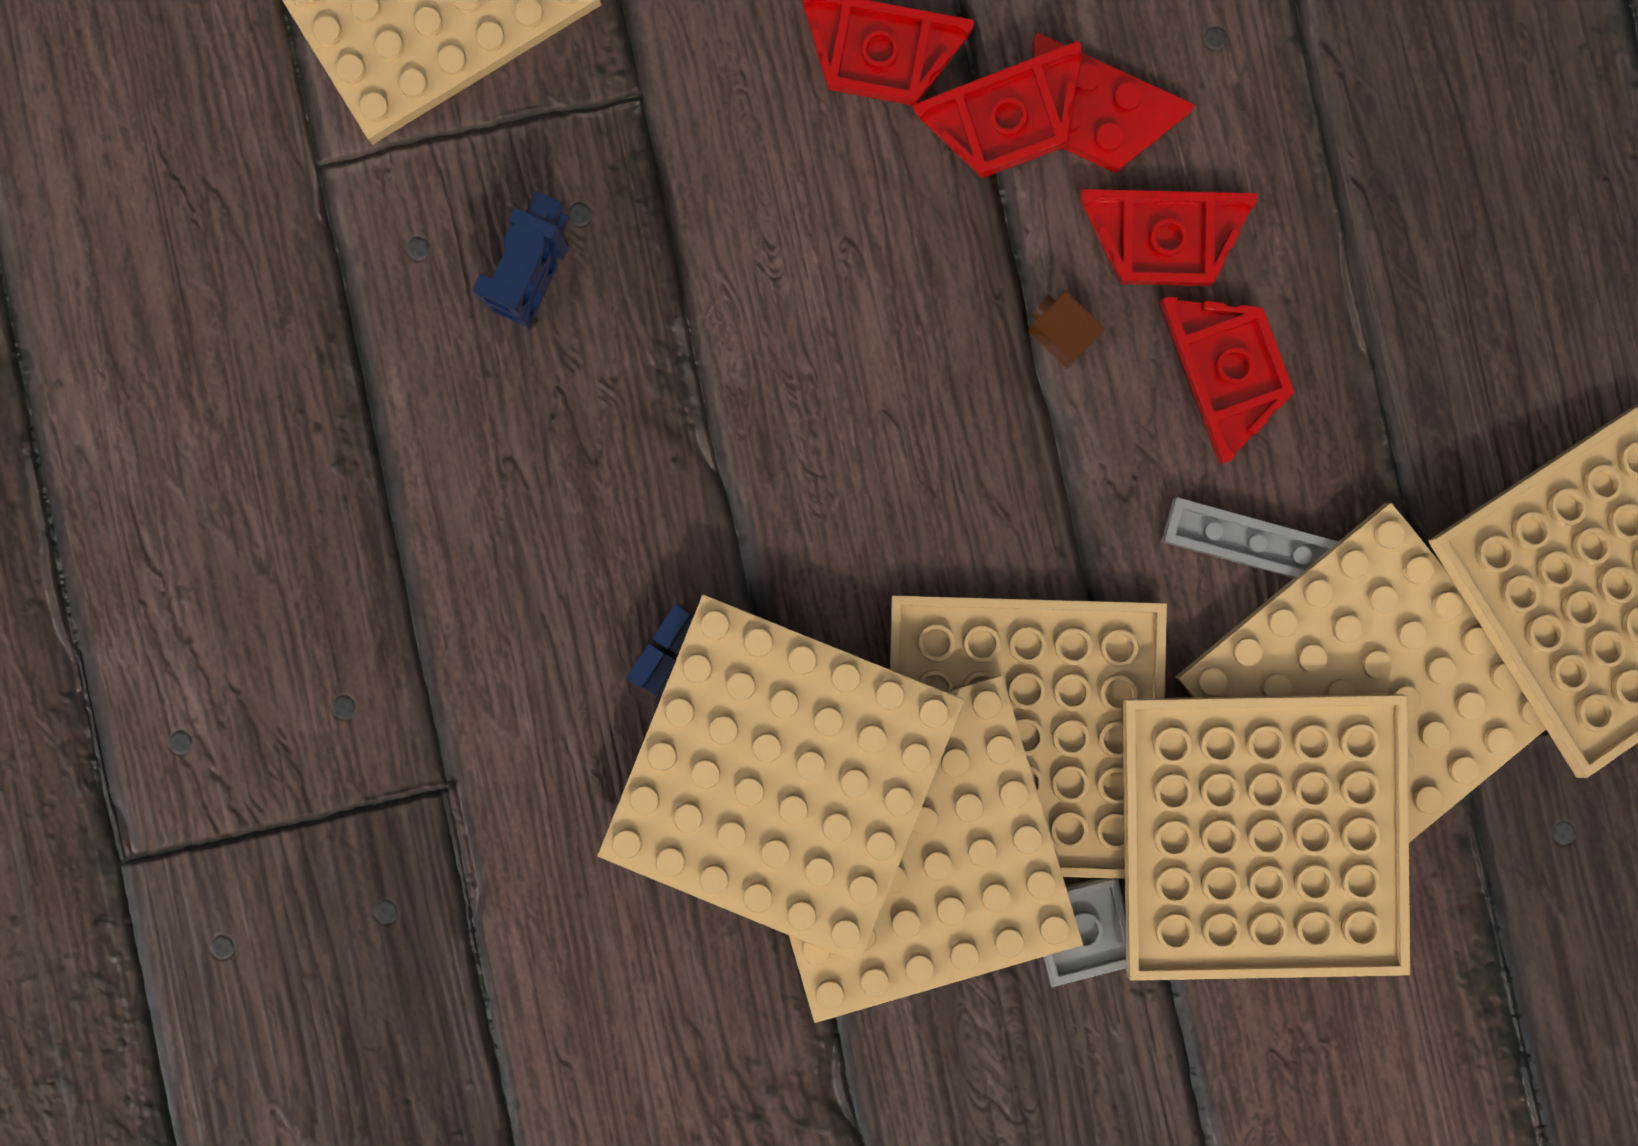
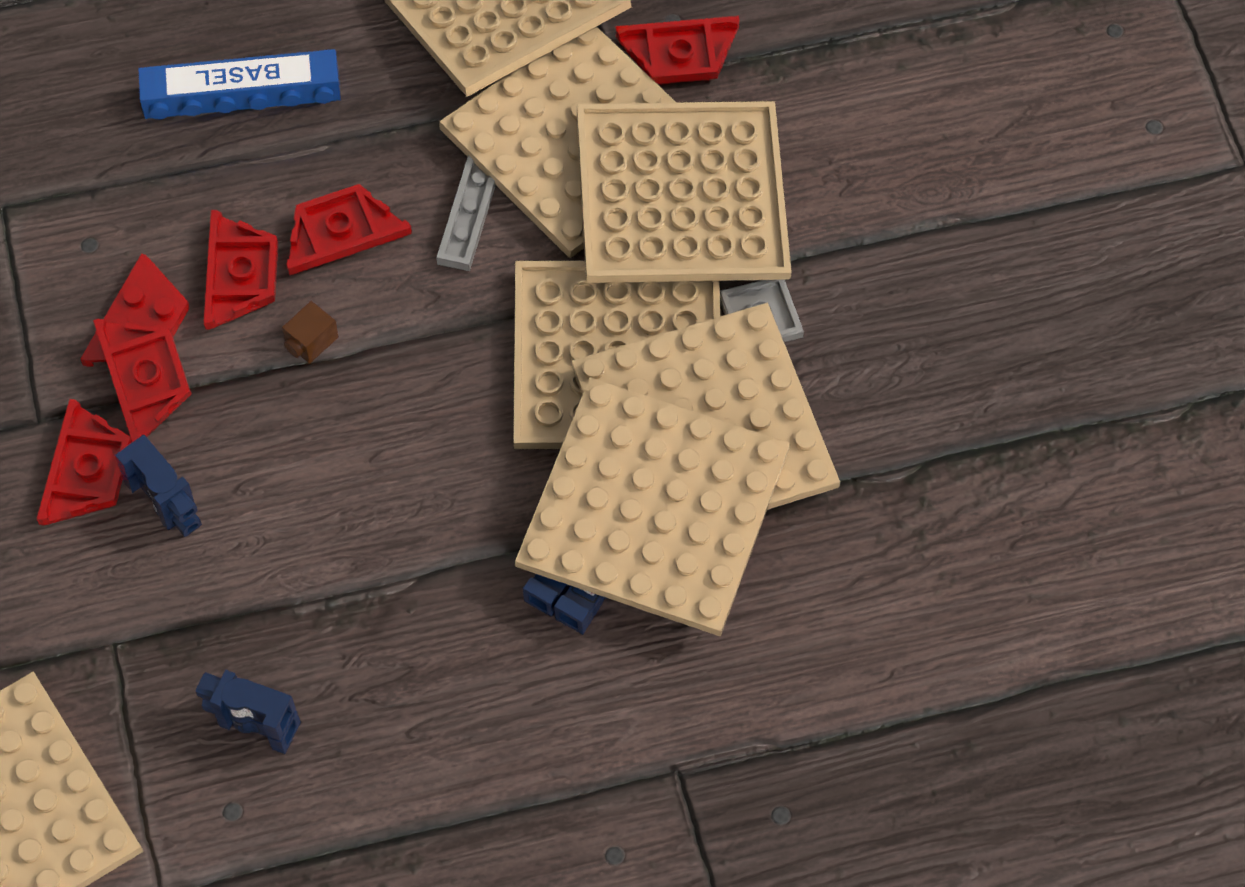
camera: 90 degrees left, 25 degrees down
(836, 139) = (172, 497): none -> dark blue hips
(1461, 226) = (239, 84): none -> blue brick
(1512, 842) = (680, 48): none -> red wing

